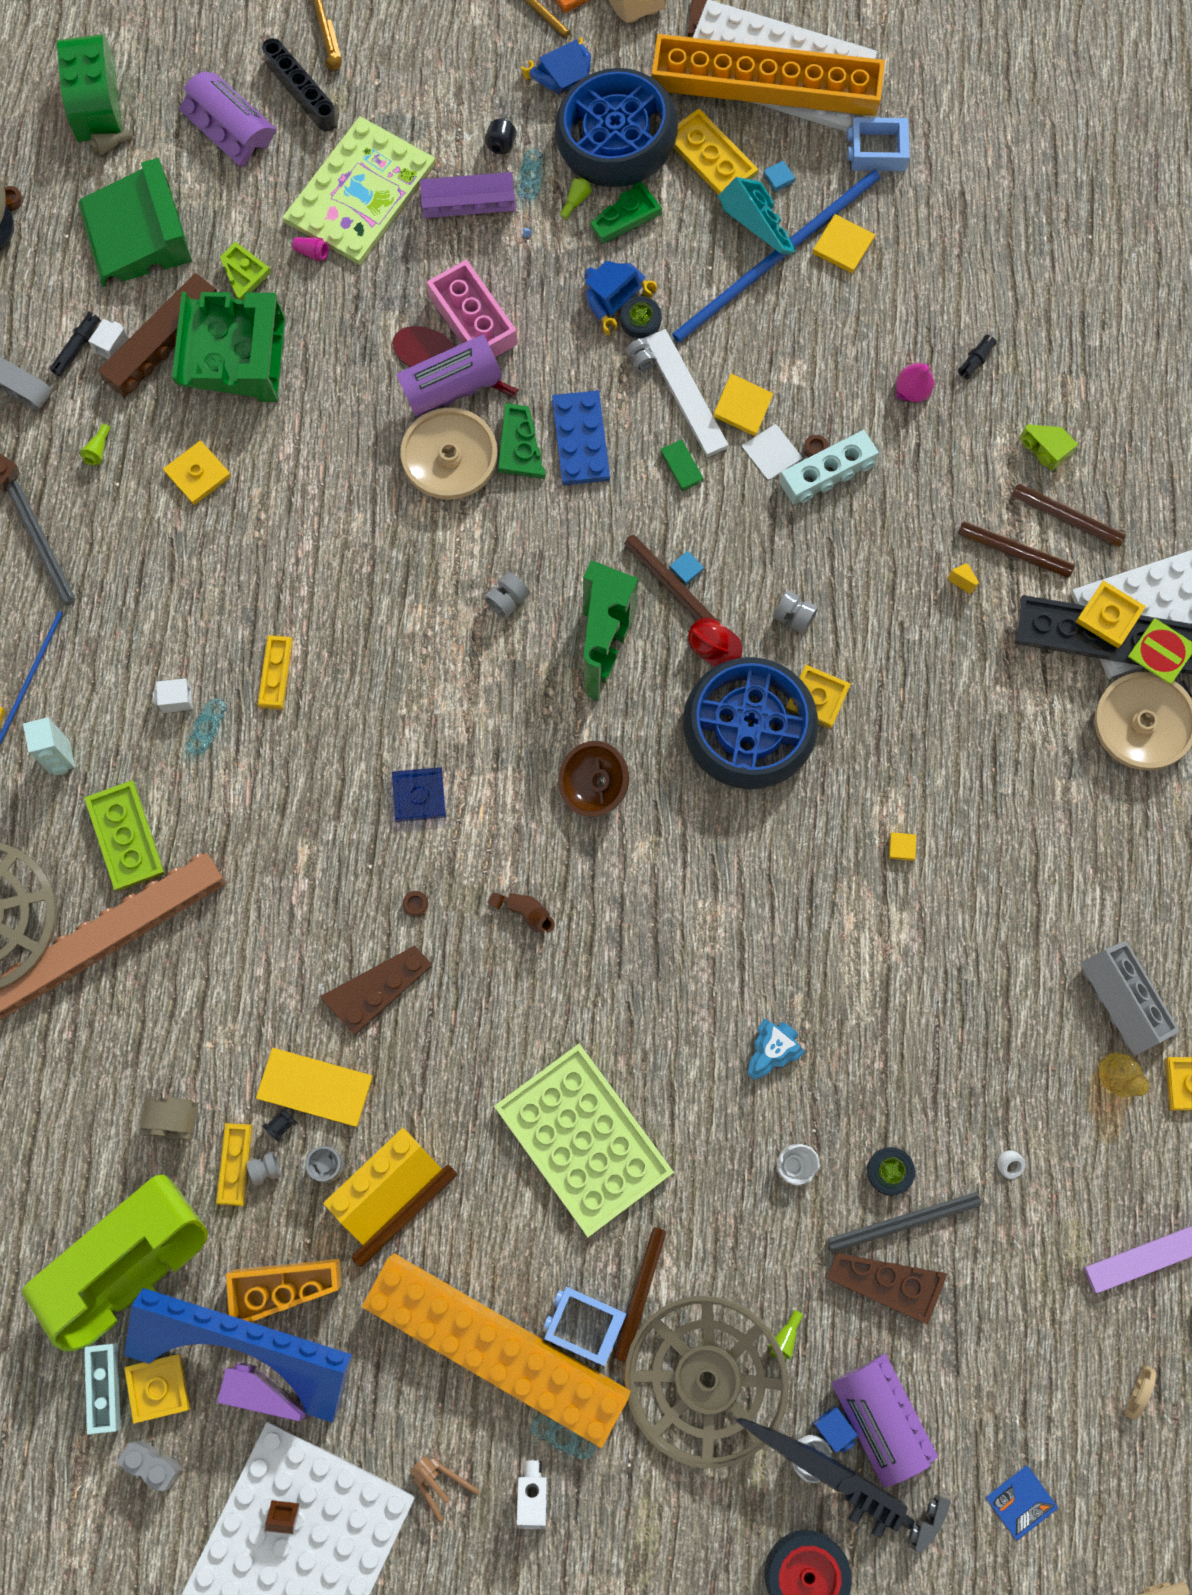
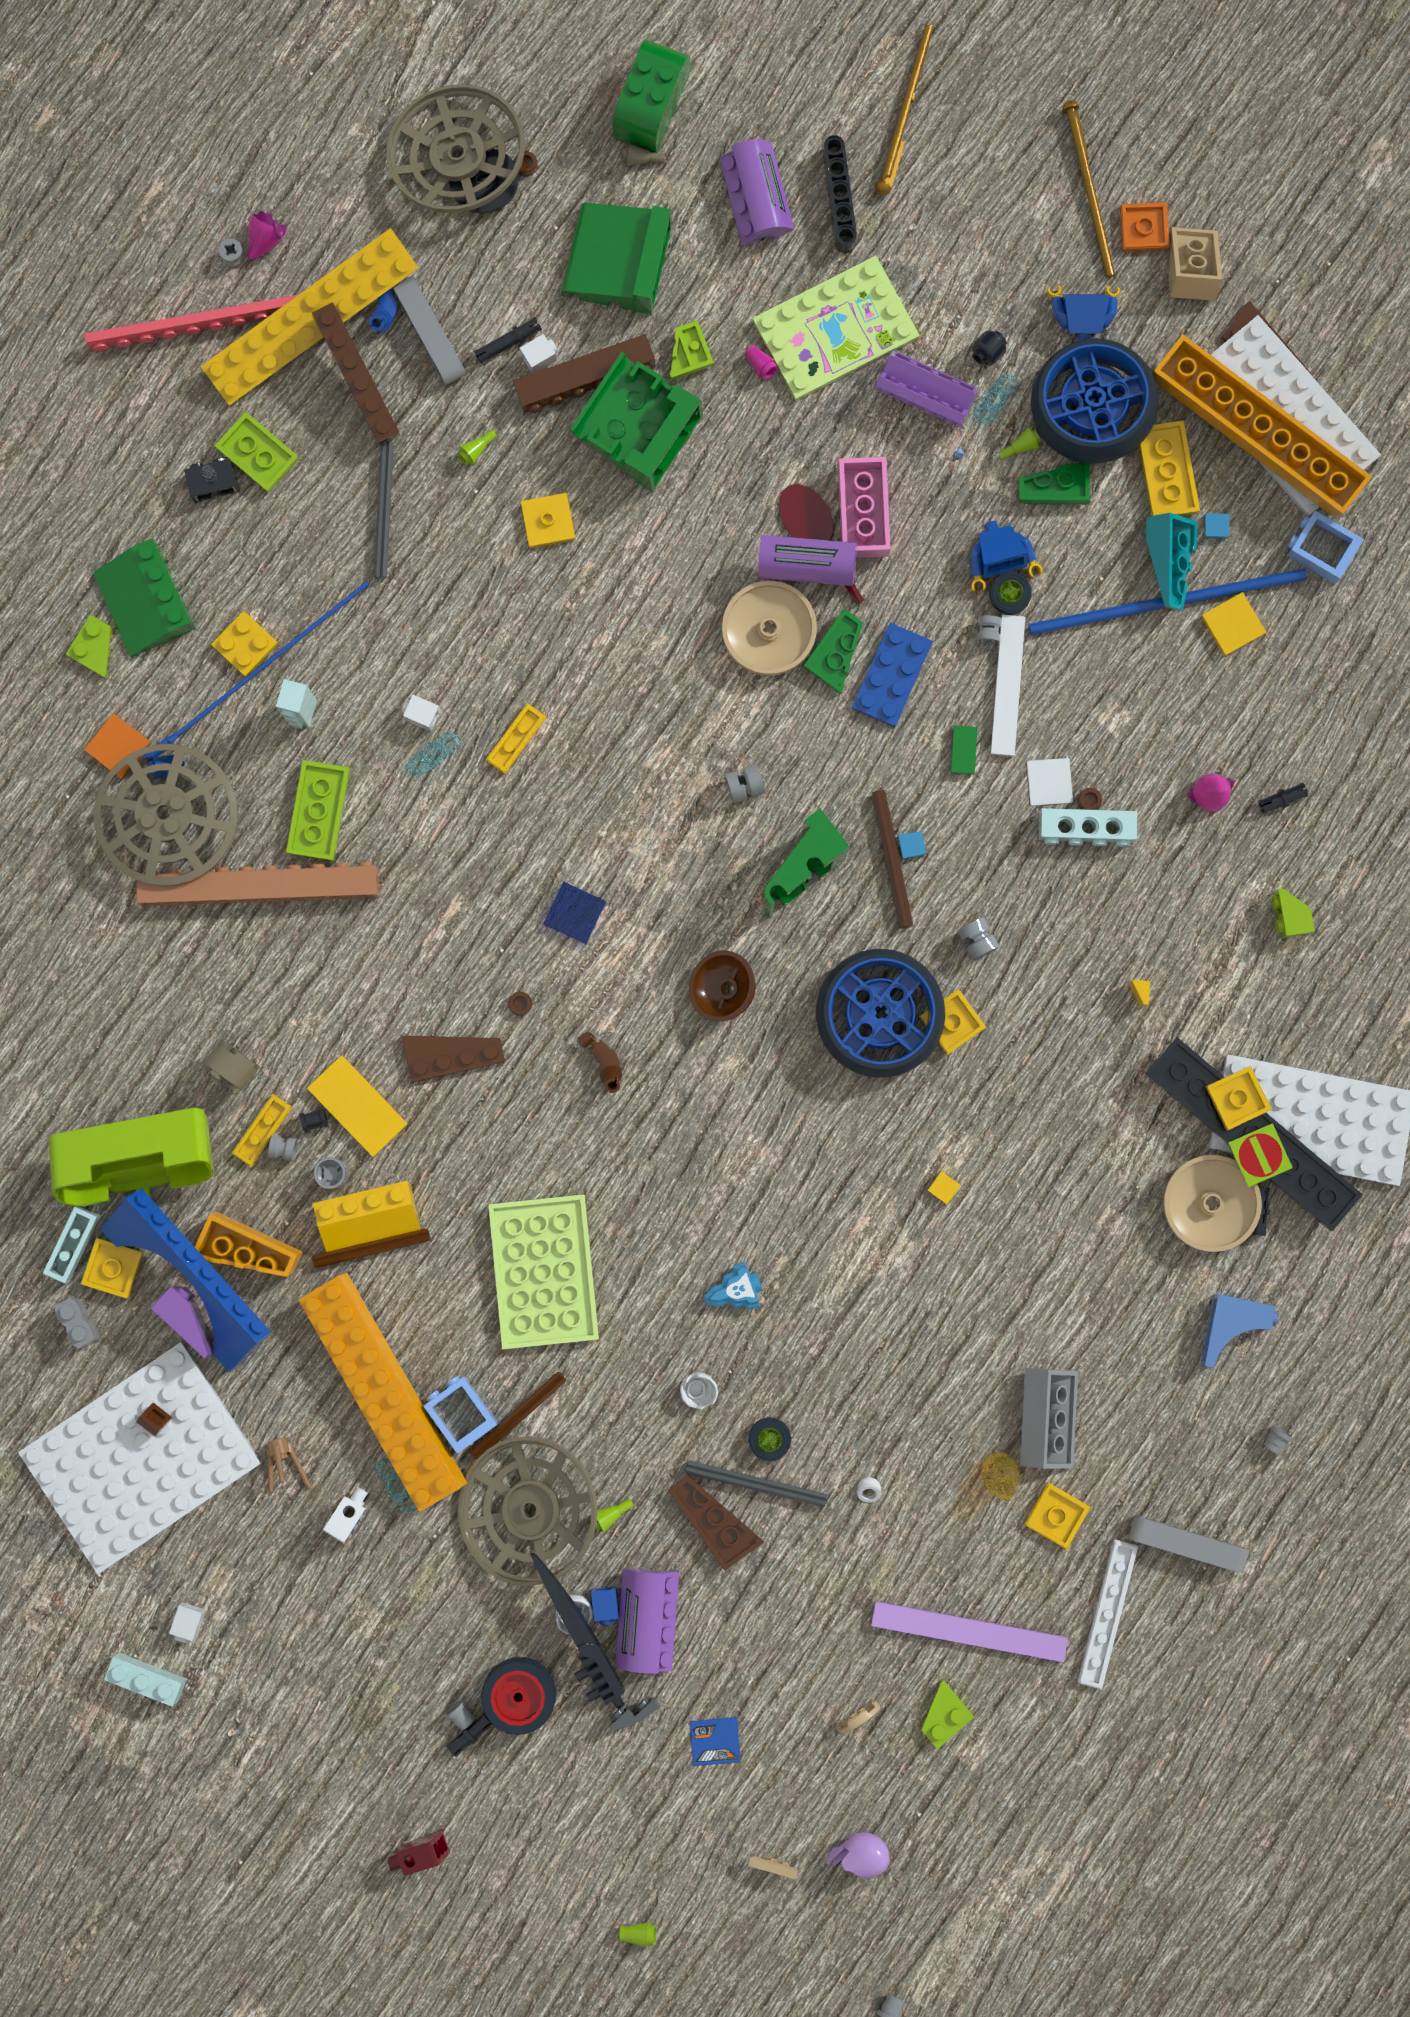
camera: 30 degrees right, 10 degrees up
(714, 641) = (894, 925): red piece -> none
(742, 404) = (1049, 725): yellow tile -> none
(1016, 549) = (1203, 991): reddish brown axle -> none
(1068, 515) = (1268, 987): reddish brown axle -> none

